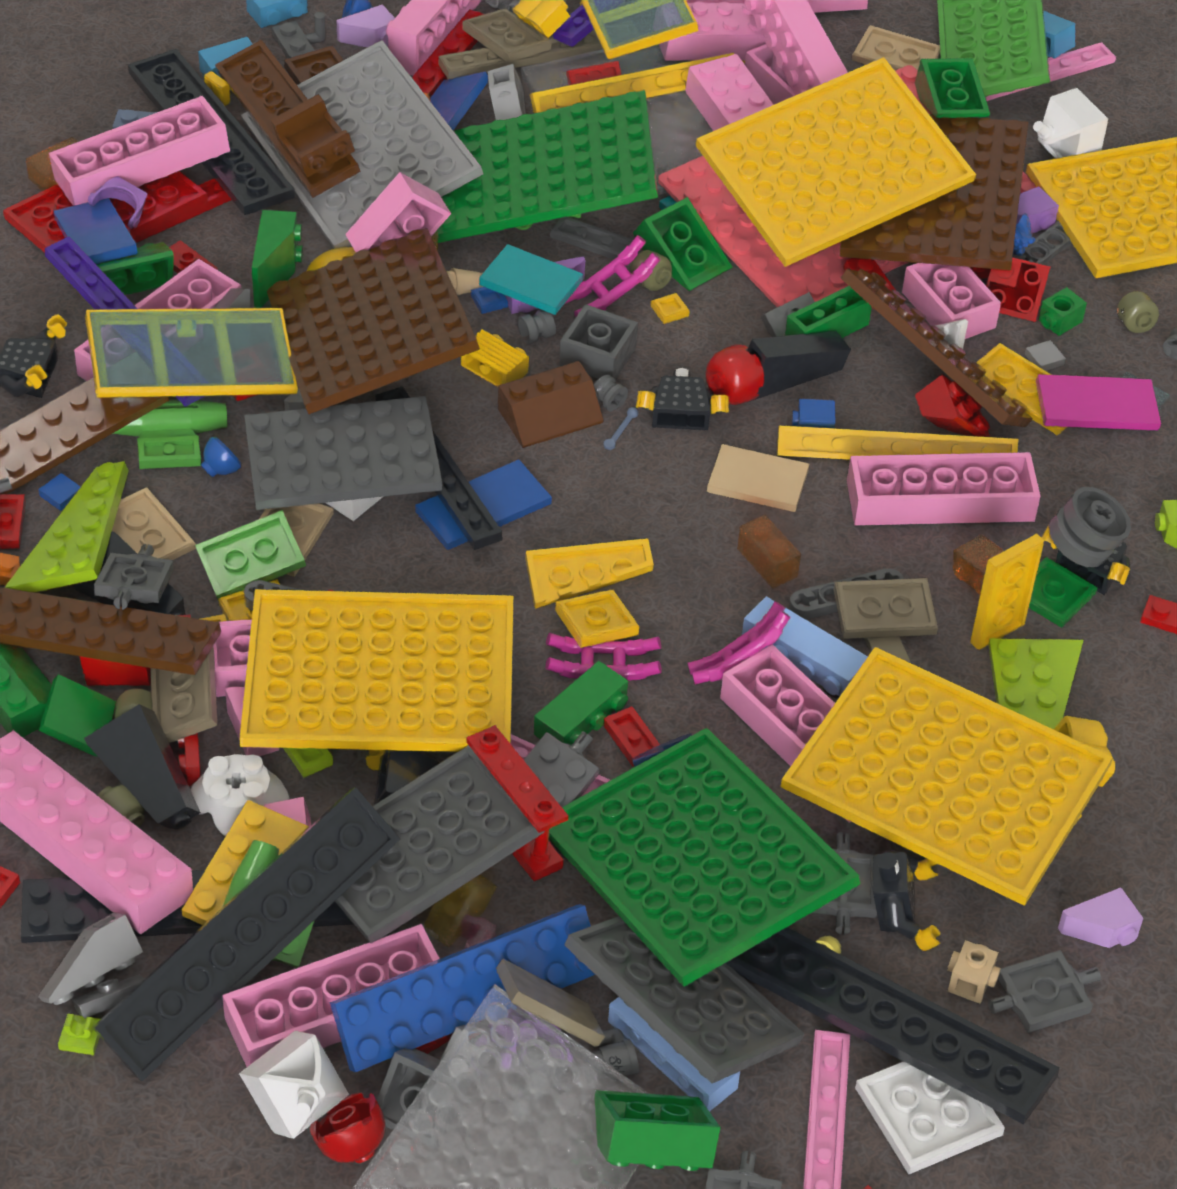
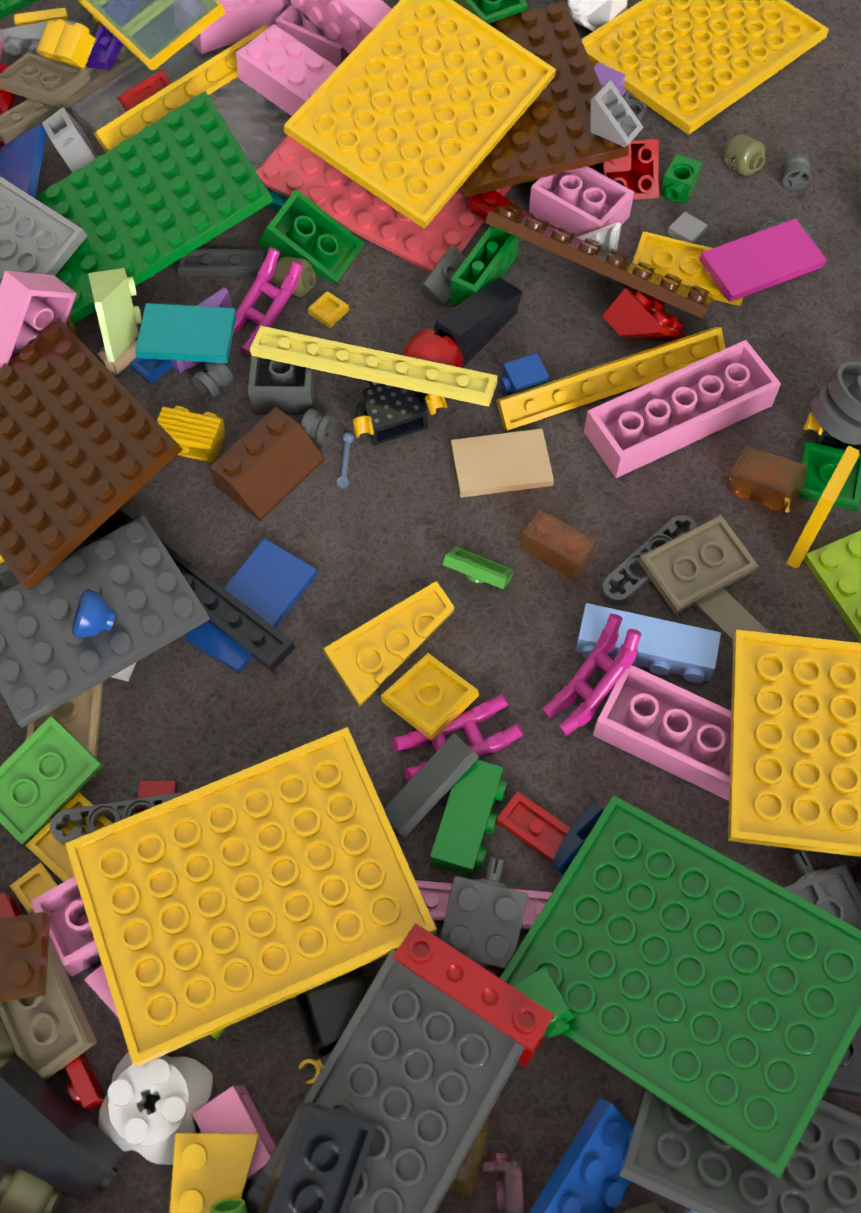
camera: 20 degrees left, 15 degrees up
(350, 444) = (92, 615): none -> blue brick
(478, 240) = (115, 310): none -> yellowish green slope
(561, 672) = (430, 784): none -> dark grey tile
(572, 835) = (544, 991): none -> green brick
(679, 356) = (374, 365): none -> light yellow tile
(690, 545) = (478, 568): none -> bright green plate
(1004, 228) = (612, 116): none -> light grey slope

